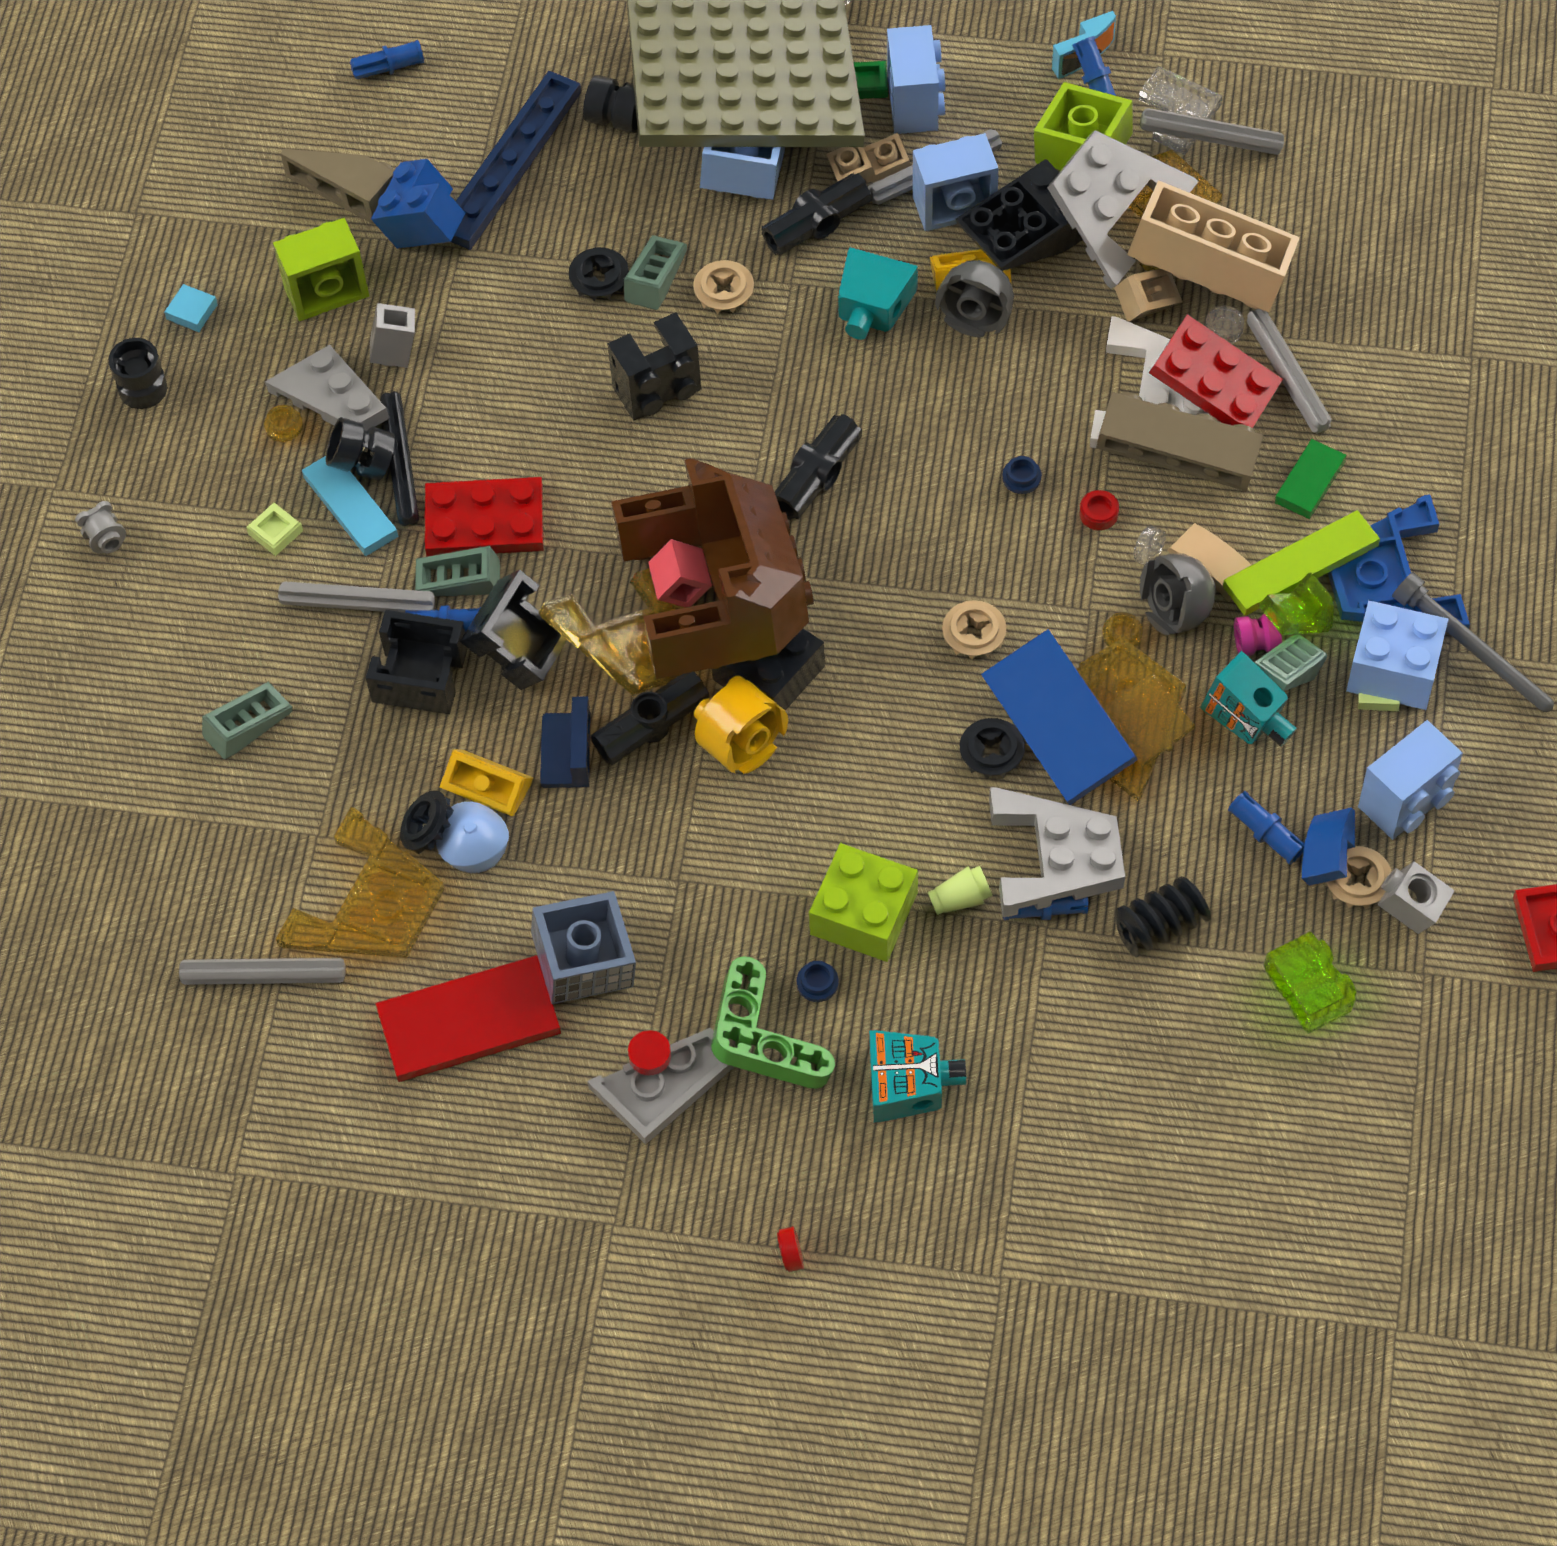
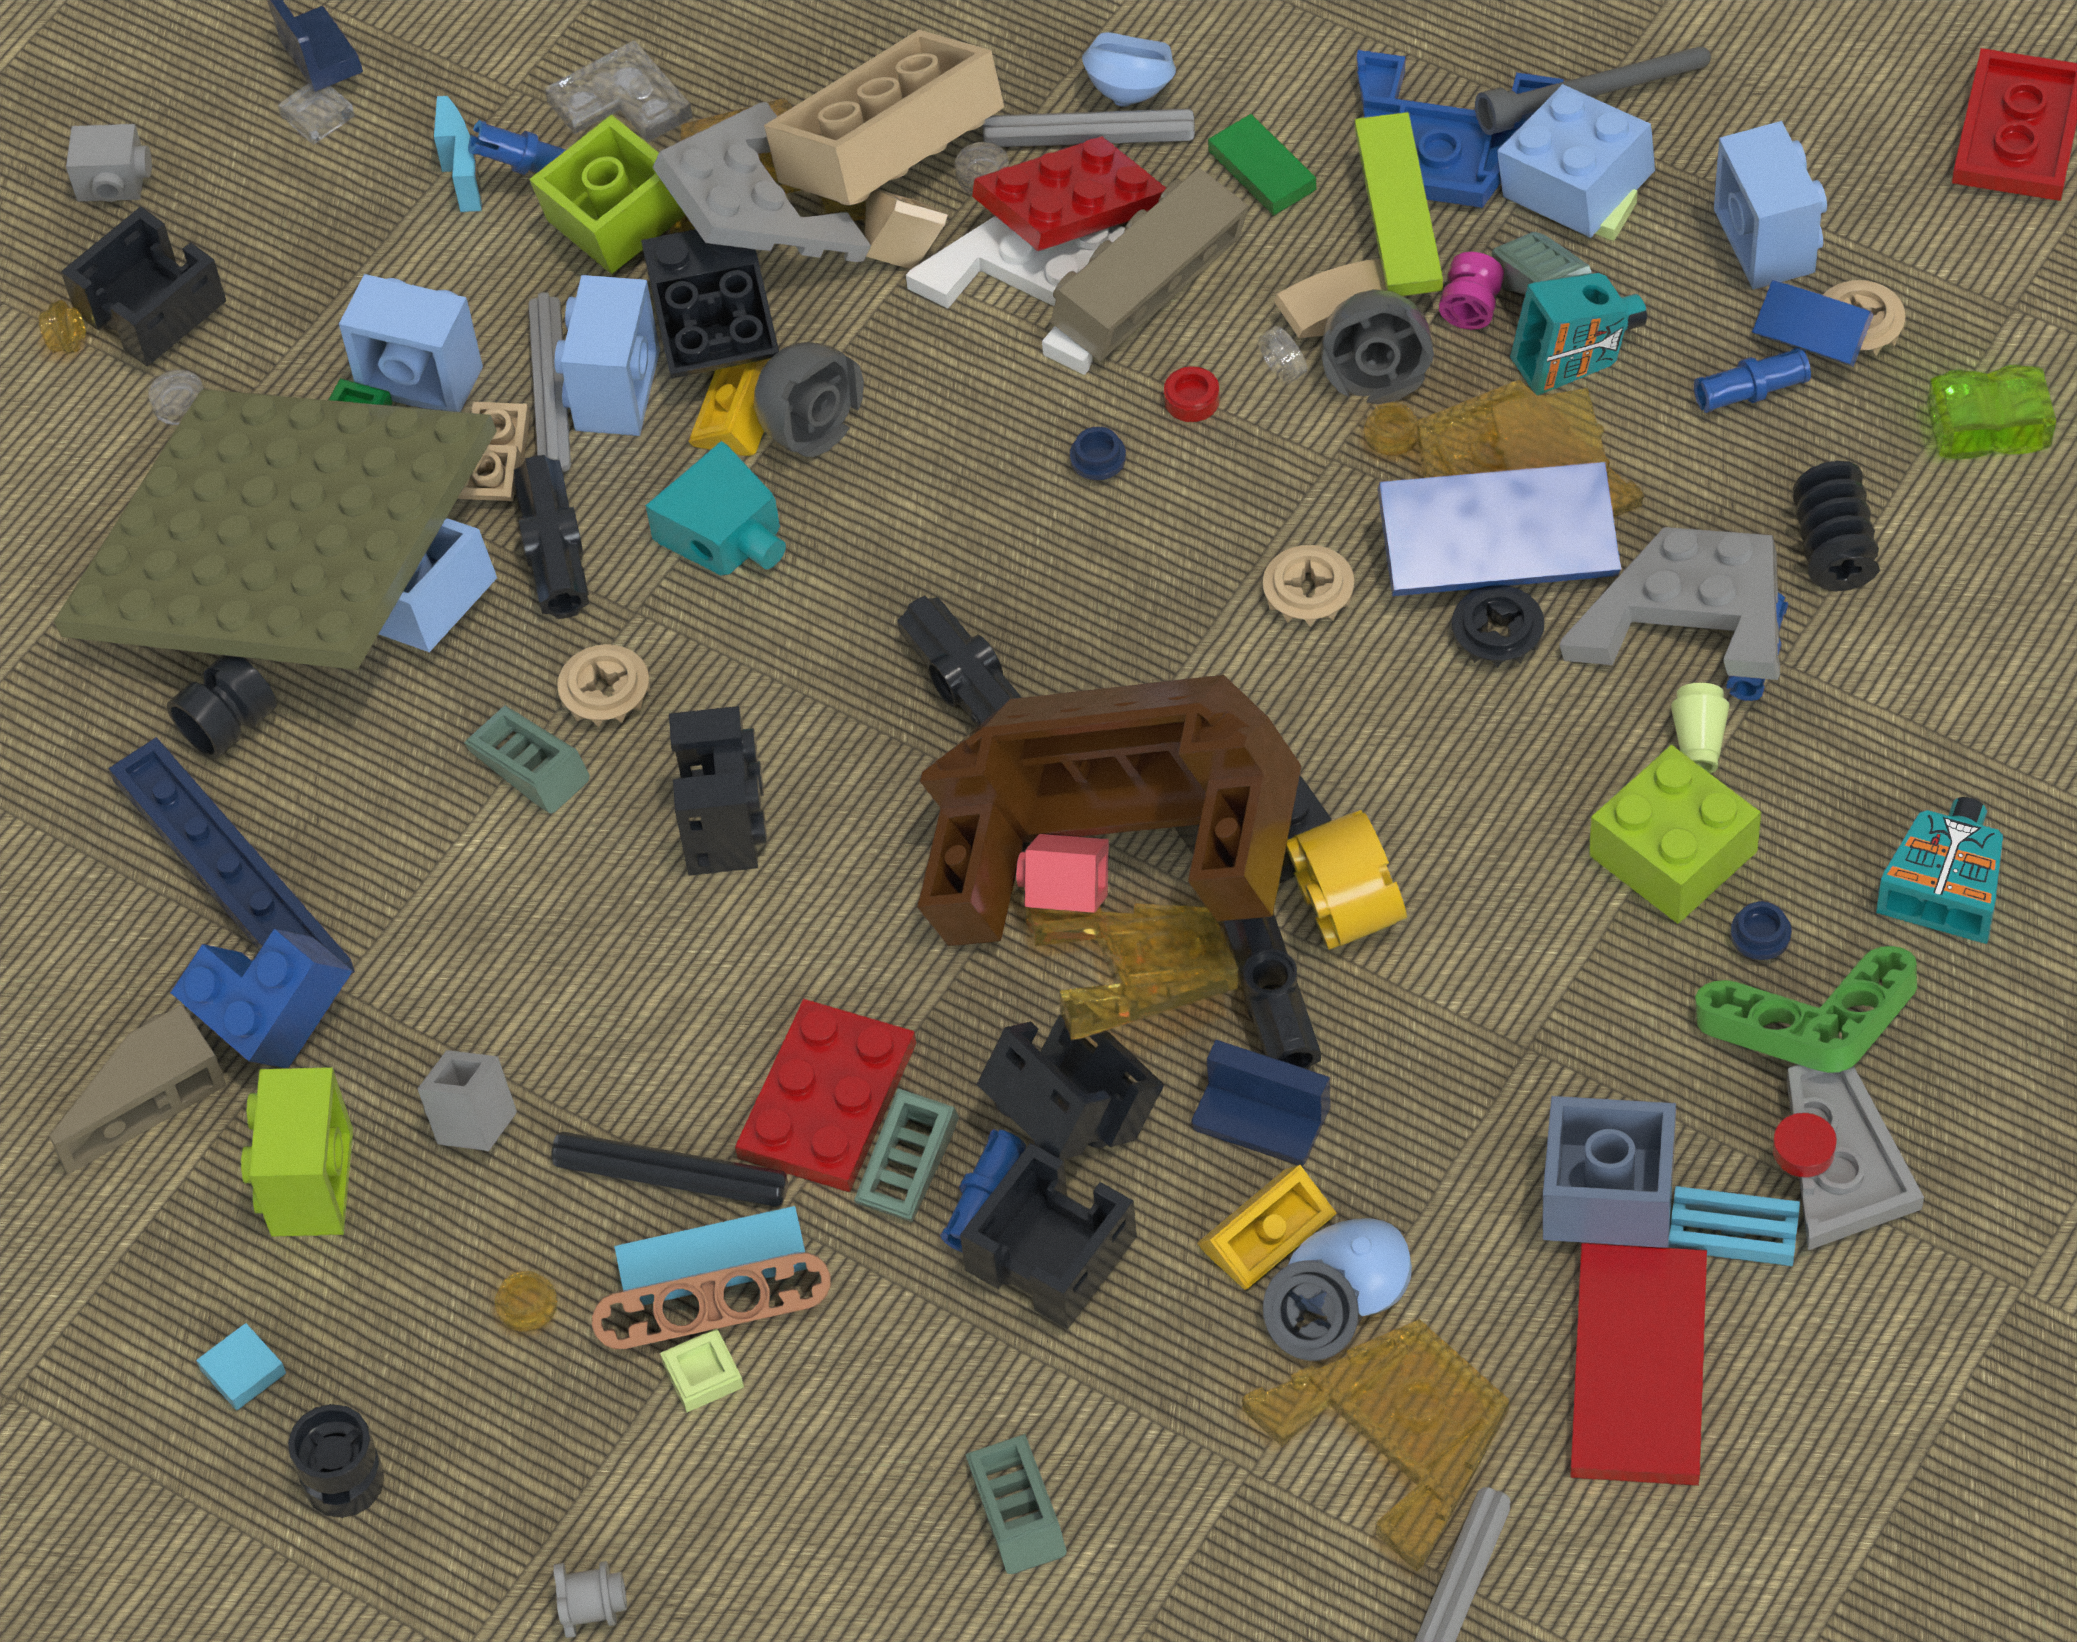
camera: 65 degrees left, 5 degrees down
(318, 509) = (713, 1309): none -> nougat beam
(329, 388) = (501, 1217): light grey wing -> none
(346, 448) = (646, 1199): black wheel -> none
(354, 597) = (881, 1296): light grey axle -> none
(582, 1007) = (1735, 1216): none -> medium azure tile
(608, 263) = (474, 813): black gear -> none
(1211, 131) = (688, 67): light grey axle -> none
(1302, 611) = (1466, 219): clear neon green slope -> none
(1348, 368) = (1128, 67): none -> light blue hat
(1430, 893) = (1924, 264): light grey brick -> none

